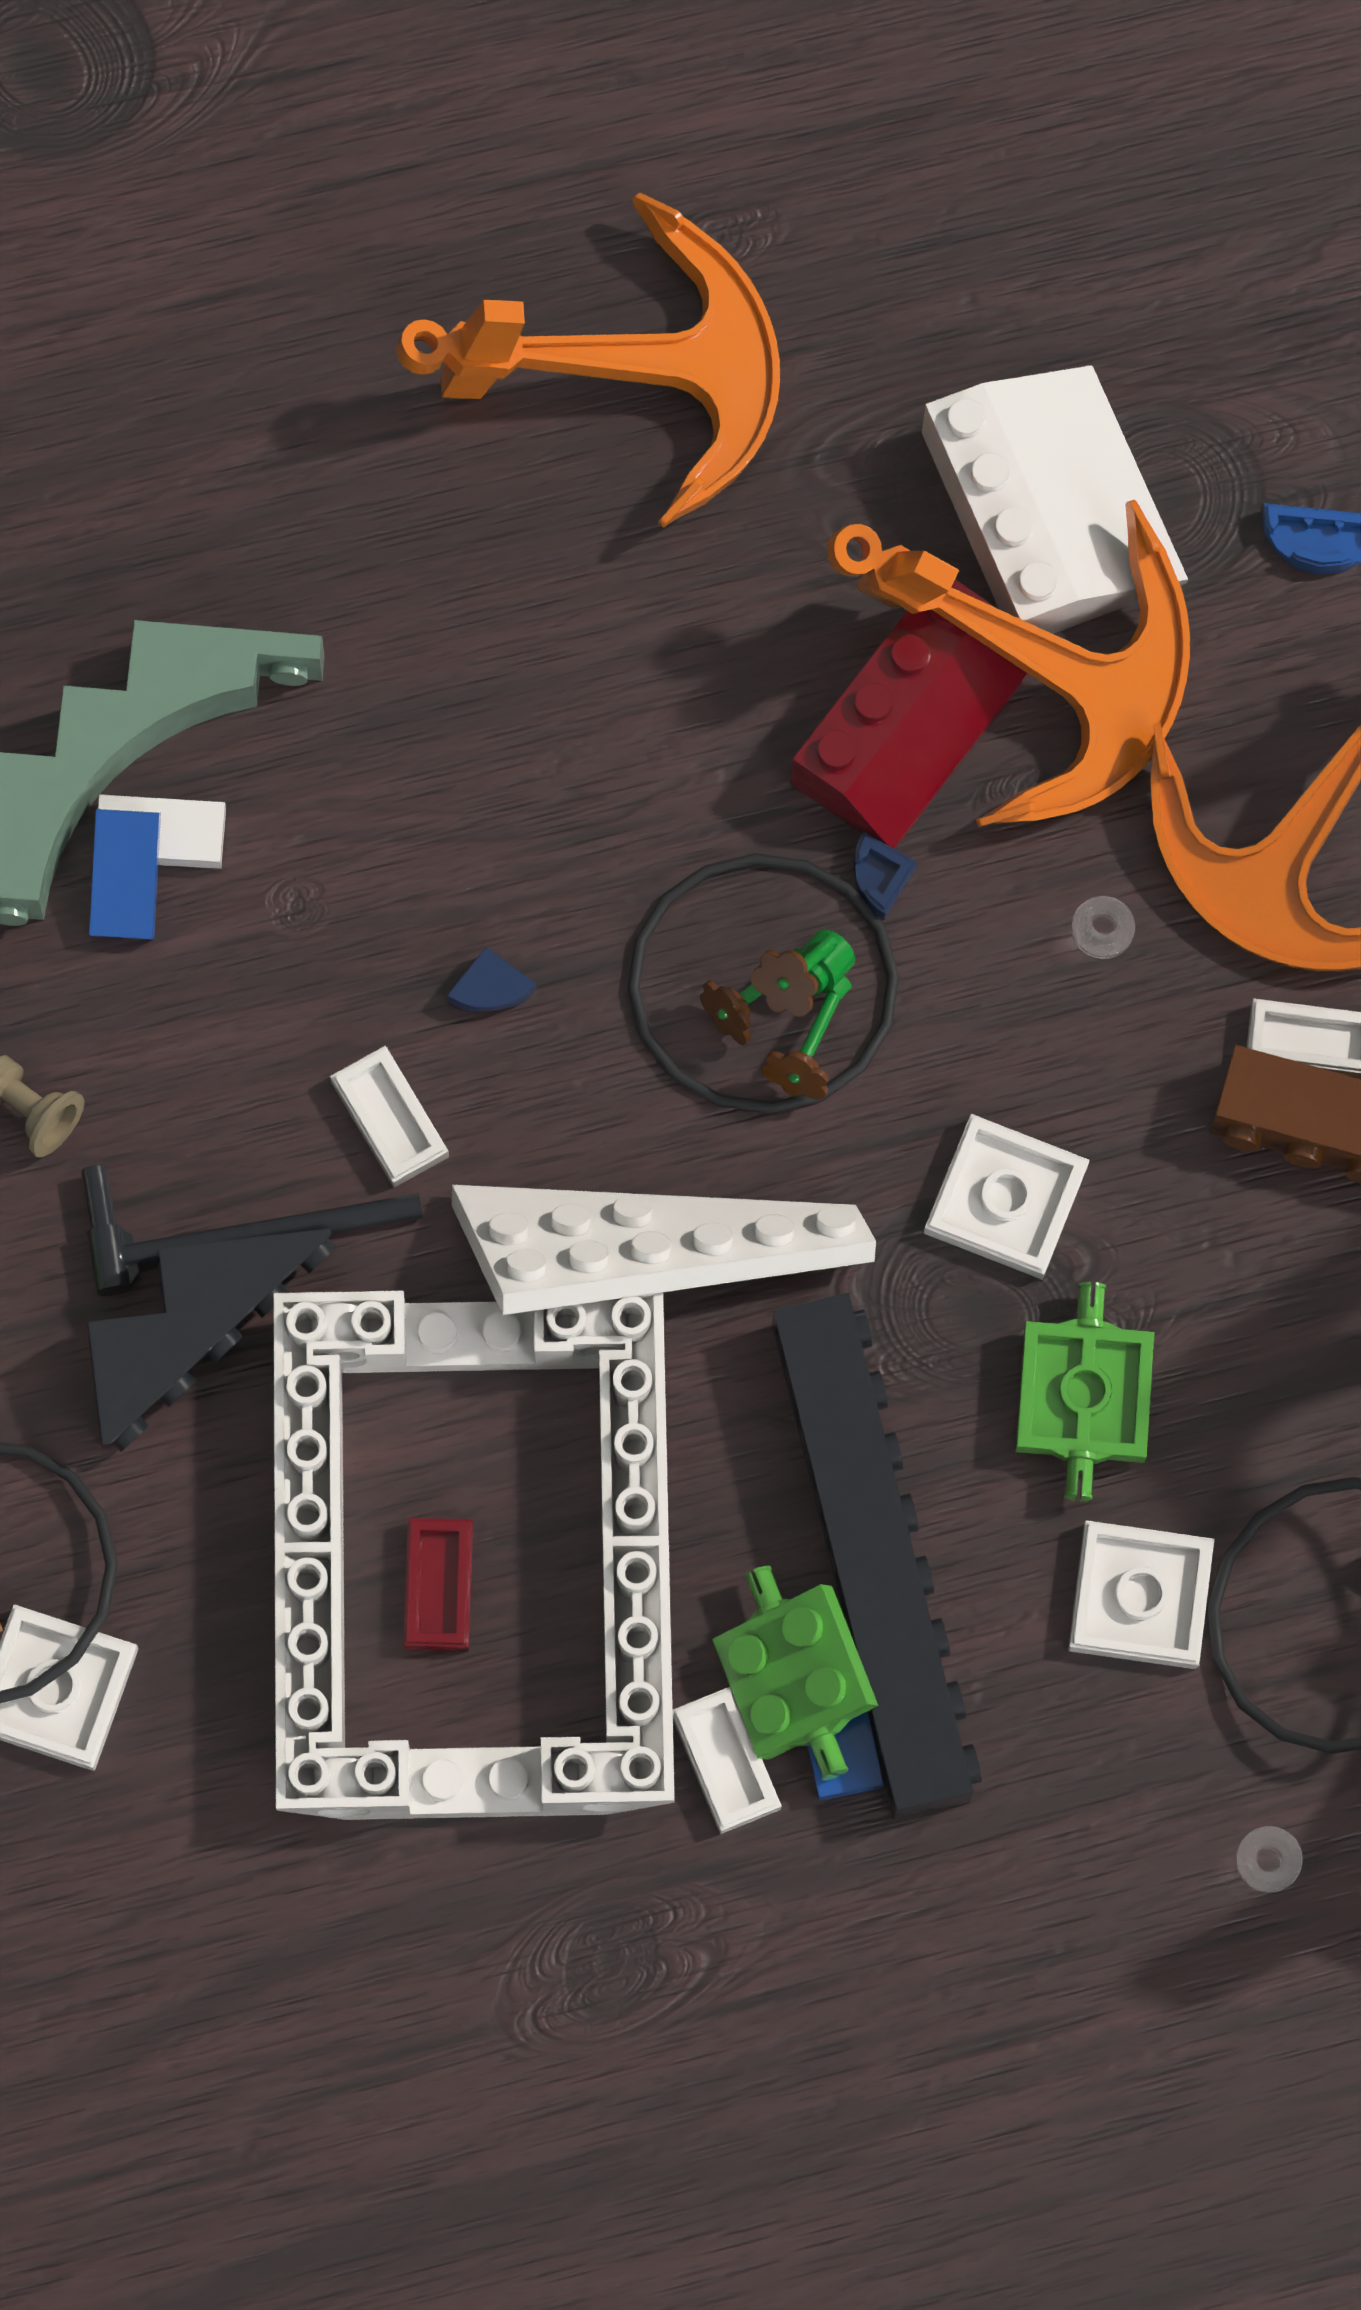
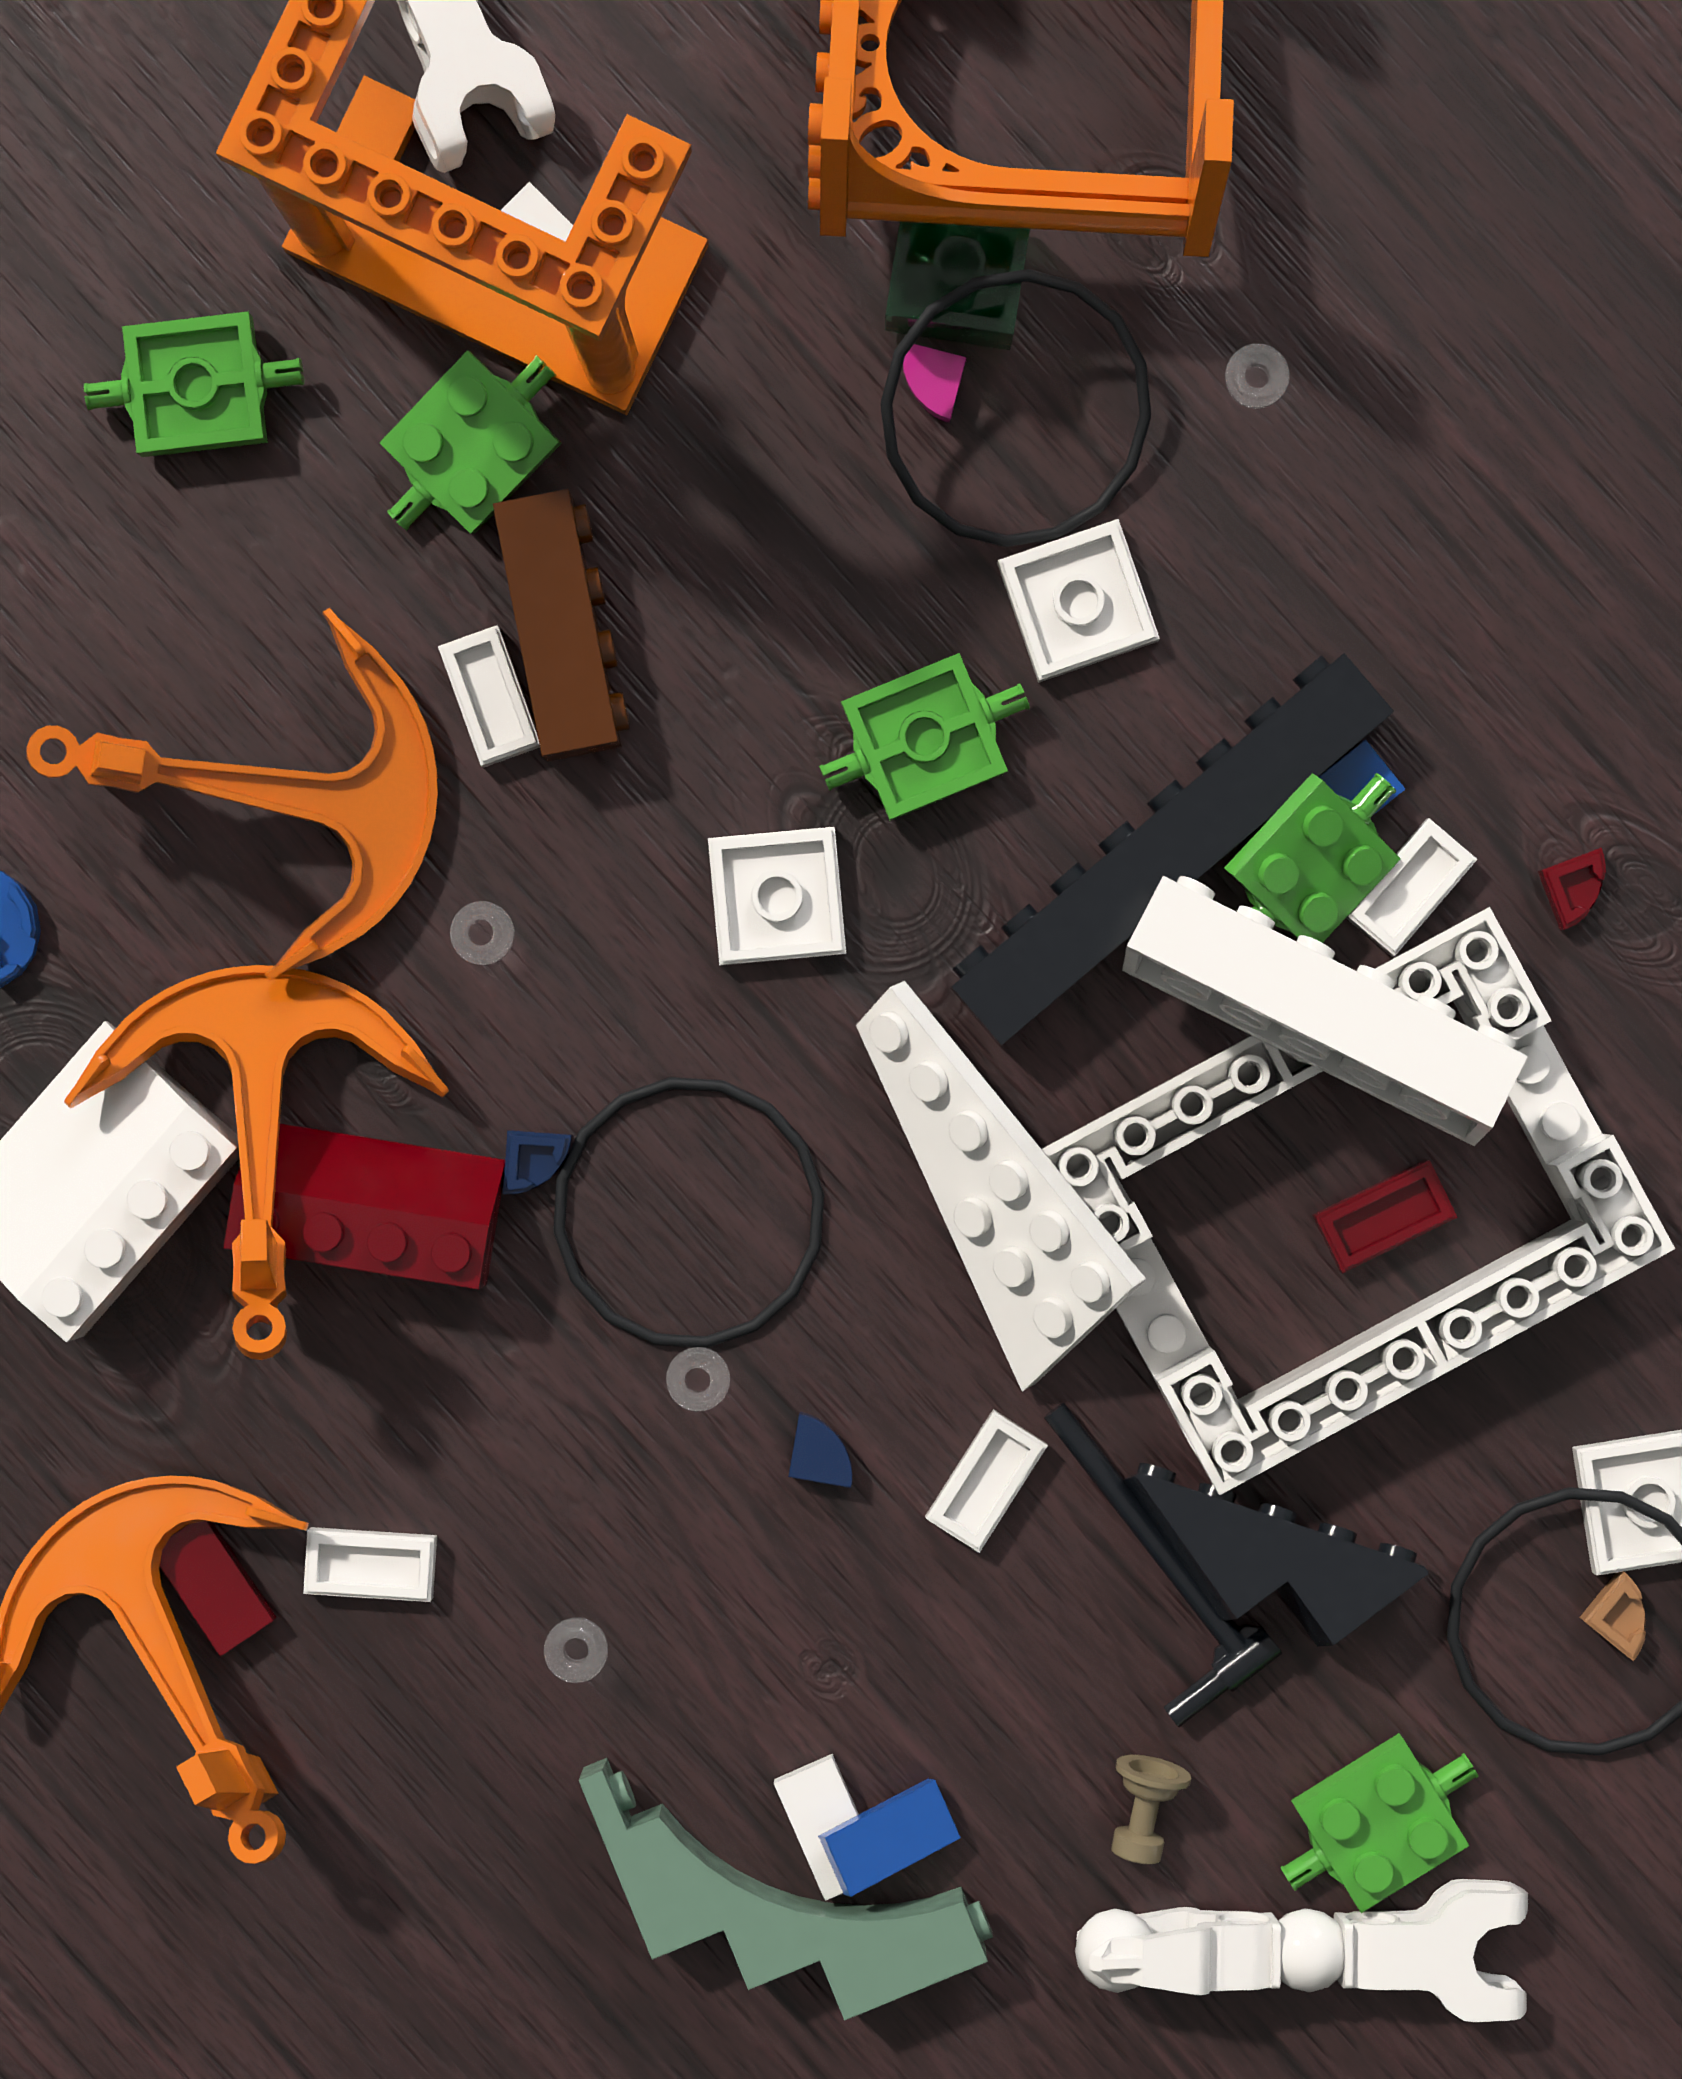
camera: 115 degrees left, 15 degrees up
(431, 680) = (566, 1667): none -> clear plate
(597, 567) = (370, 1564): none -> white tile
(616, 932) = (698, 1358): none -> clear plate
(648, 431) = (214, 1585): none -> dark red tile
(649, 1910) = (1574, 886): none -> dark red tile
(652, 1581) = (1323, 1010): none -> white brick
(789, 984) = (658, 1171): reddish brown plant -> none

